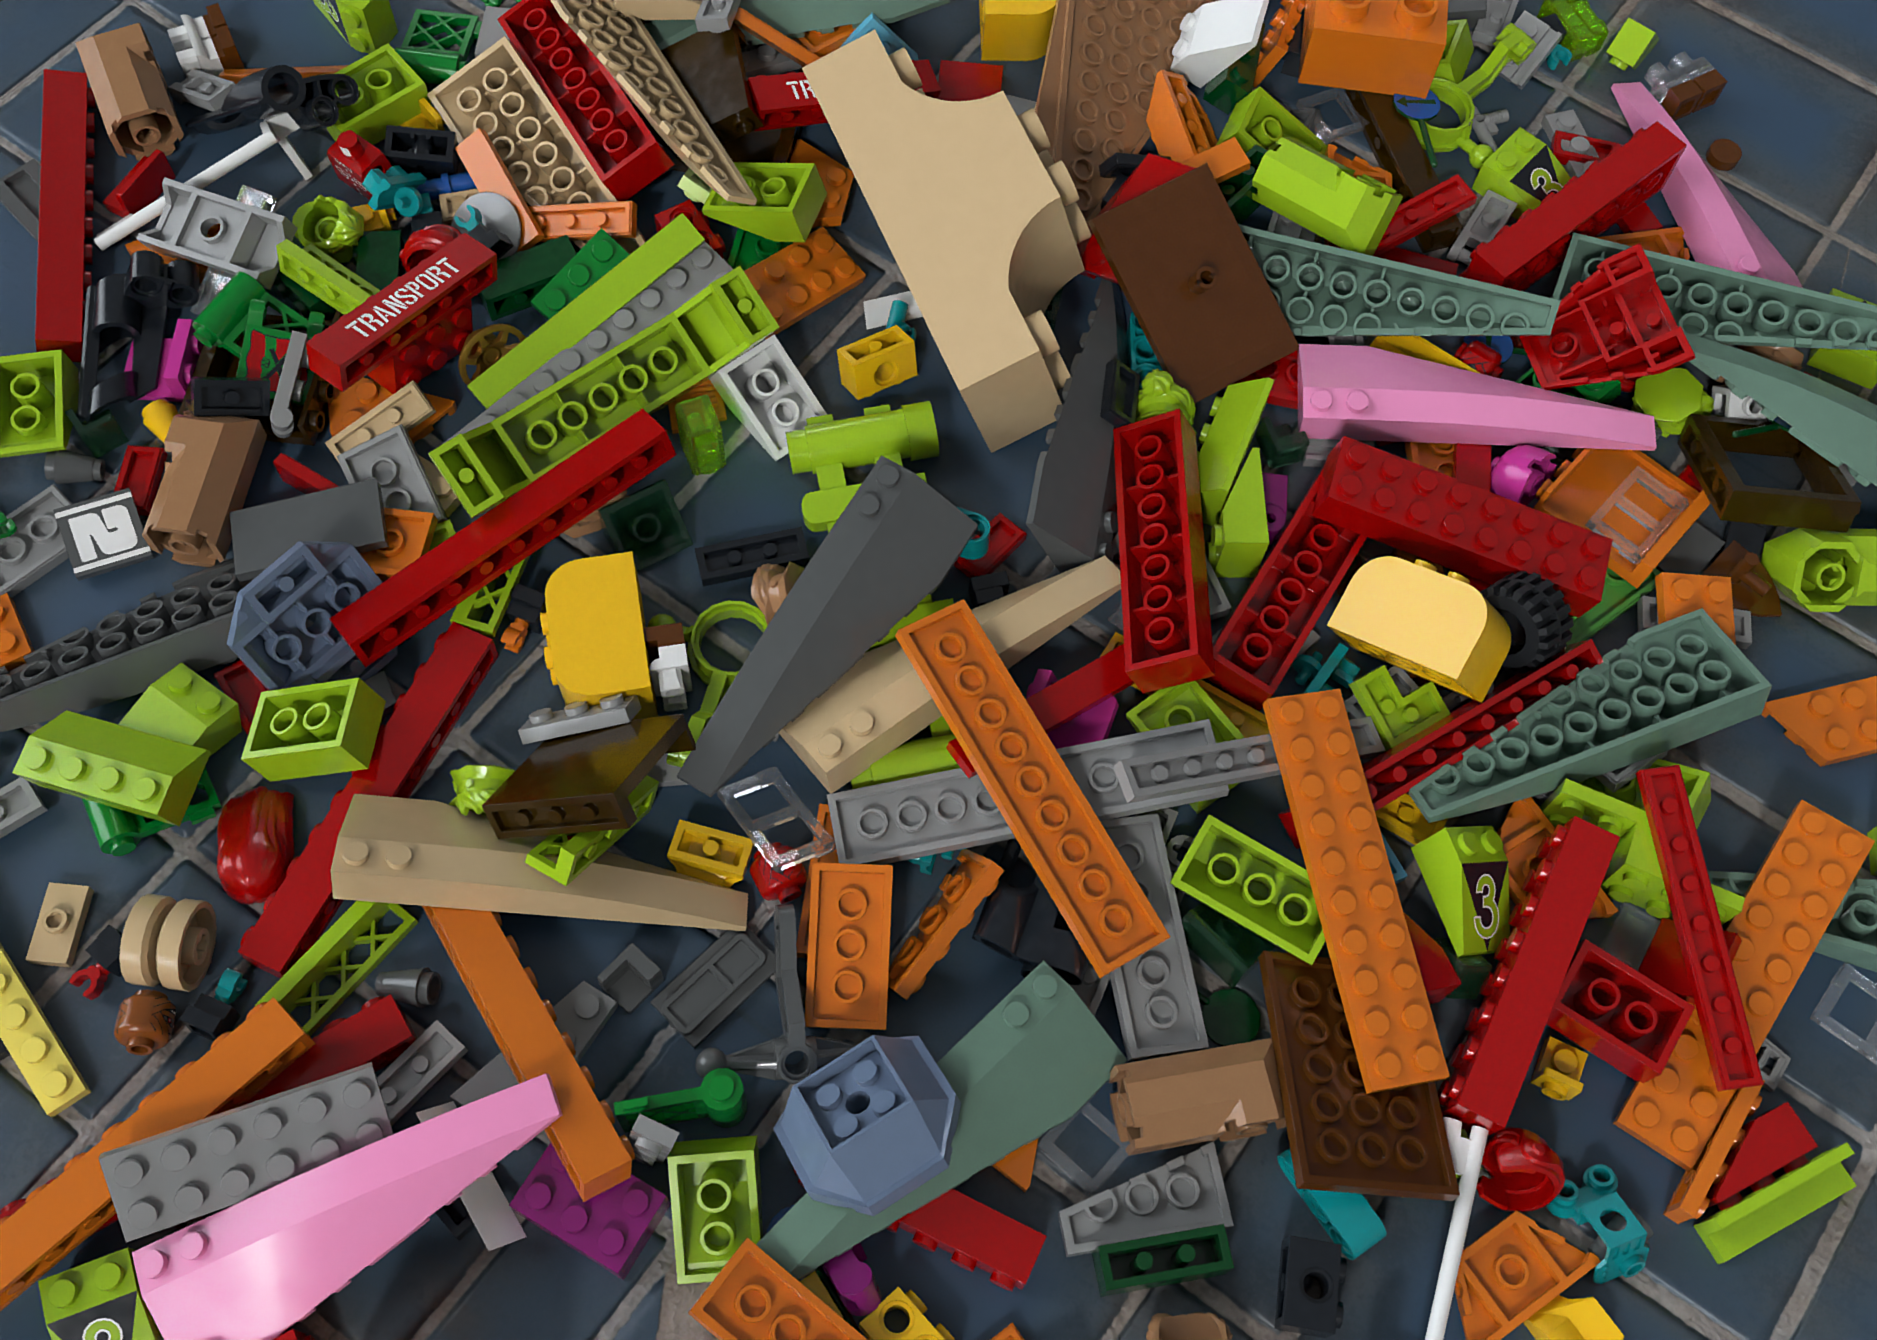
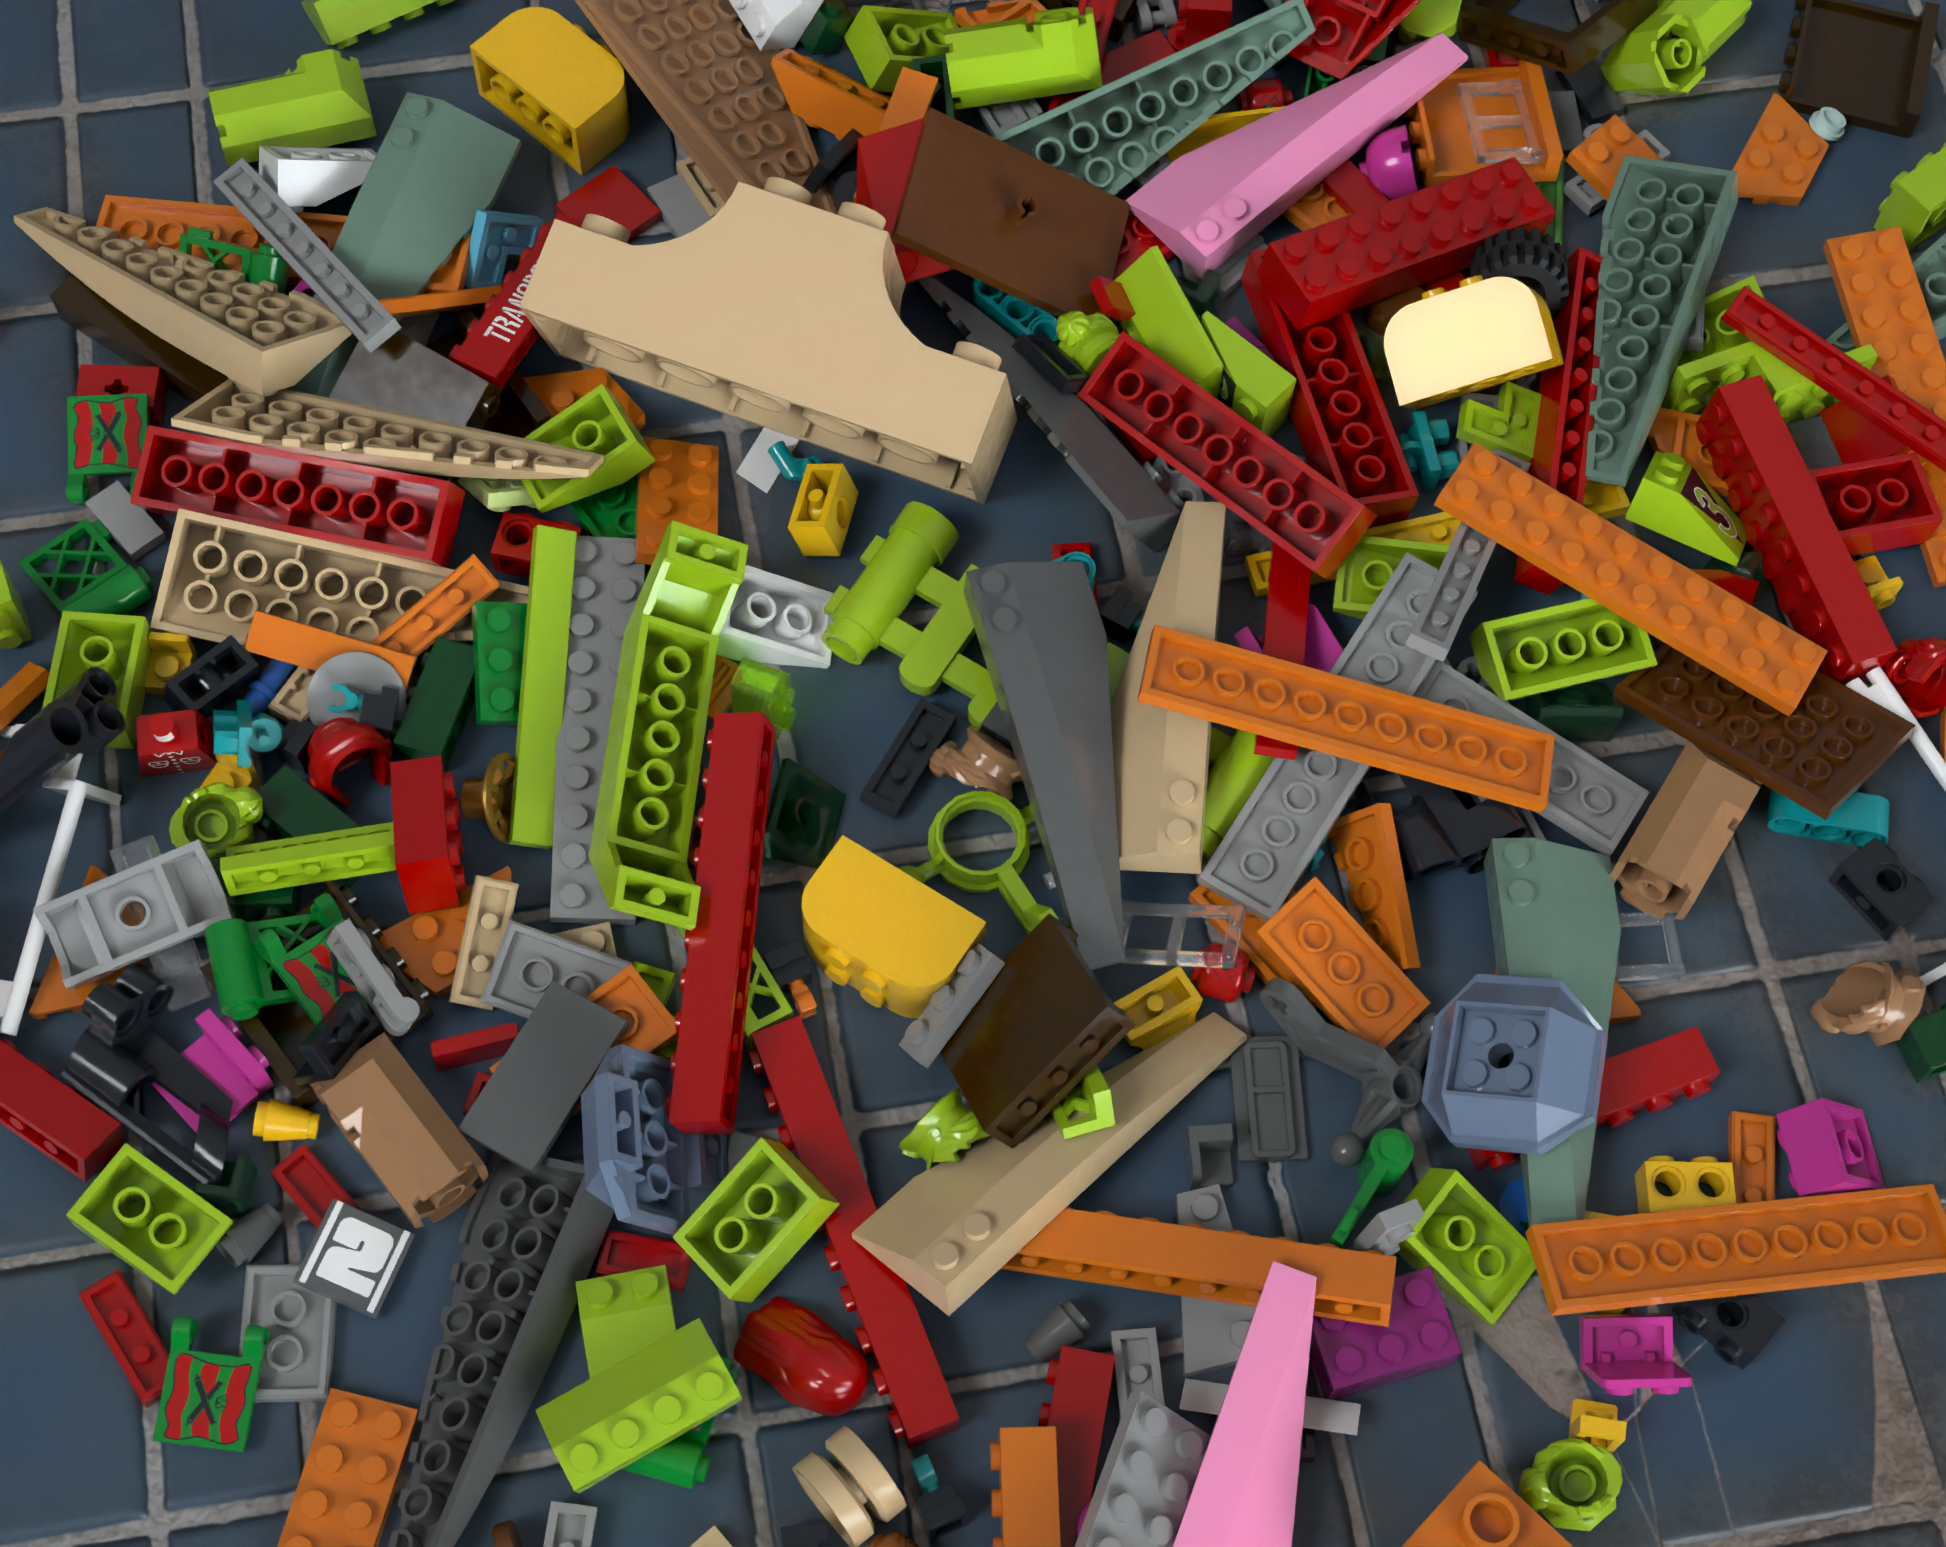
camera: 45 degrees left, 0 degrees up
(329, 951) = (967, 1375): lime fence -> none
(401, 312) = (425, 819): red brick -> none
(669, 664) = (967, 889): white hips -> none
(854, 1281) = (1616, 1191): magenta leg -> none
(1162, 1260) = (1781, 966): dark green brick -> none
(1166, 1200) = (1731, 937): light grey wing -> none
(1211, 391) = (1111, 298): none -> red tile
(1230, 1017) = (1633, 758): dark green piece -> none
(1750, 582) = (1603, 101): reddish brown shield -> none

